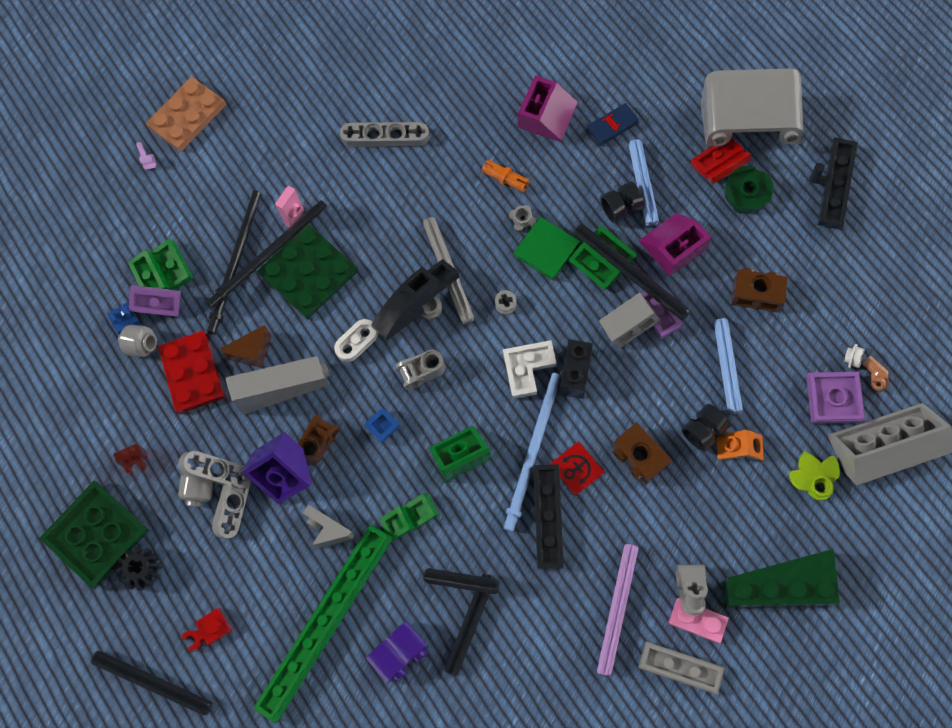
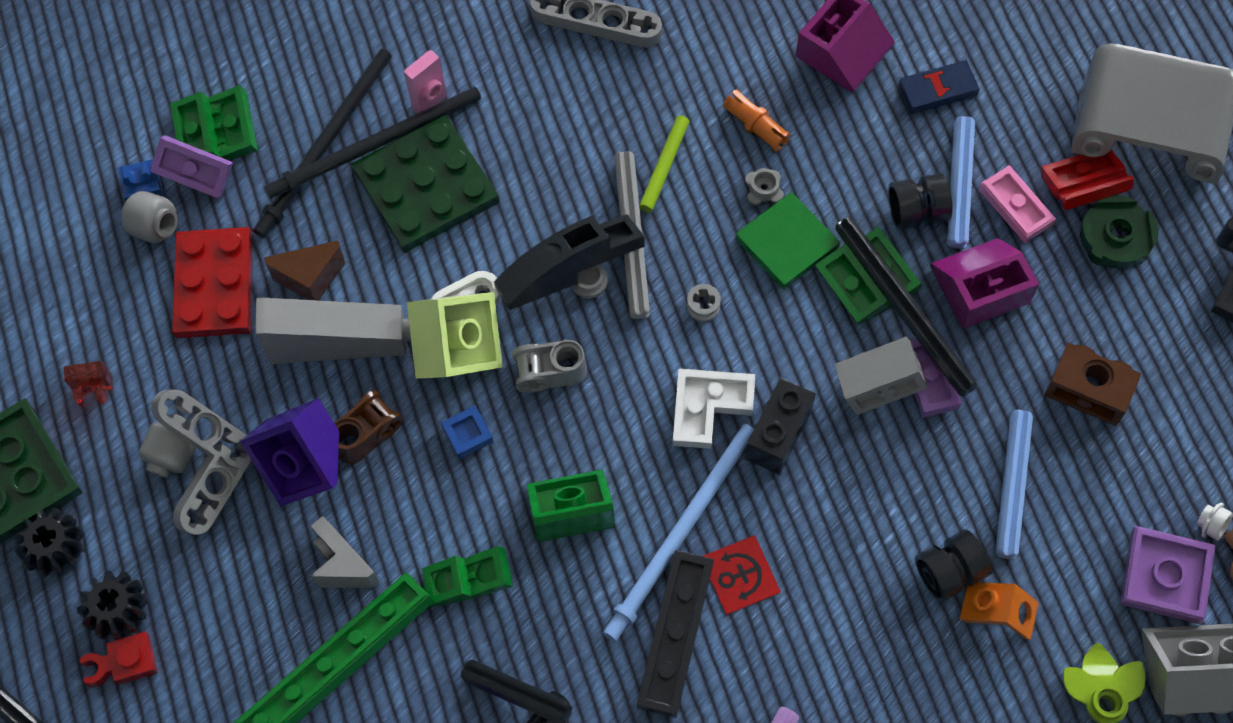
camera: 10 degrees right, 5 degrees down
(184, 603) = (99, 613): none -> black gear
(356, 366) = (454, 335): none -> yellowish green slope
(455, 219) = (664, 164): none -> lime bar
(638, 439) = (843, 555): reddish brown brick -> none
(682, 187) = (1017, 204): none -> bright pink plate

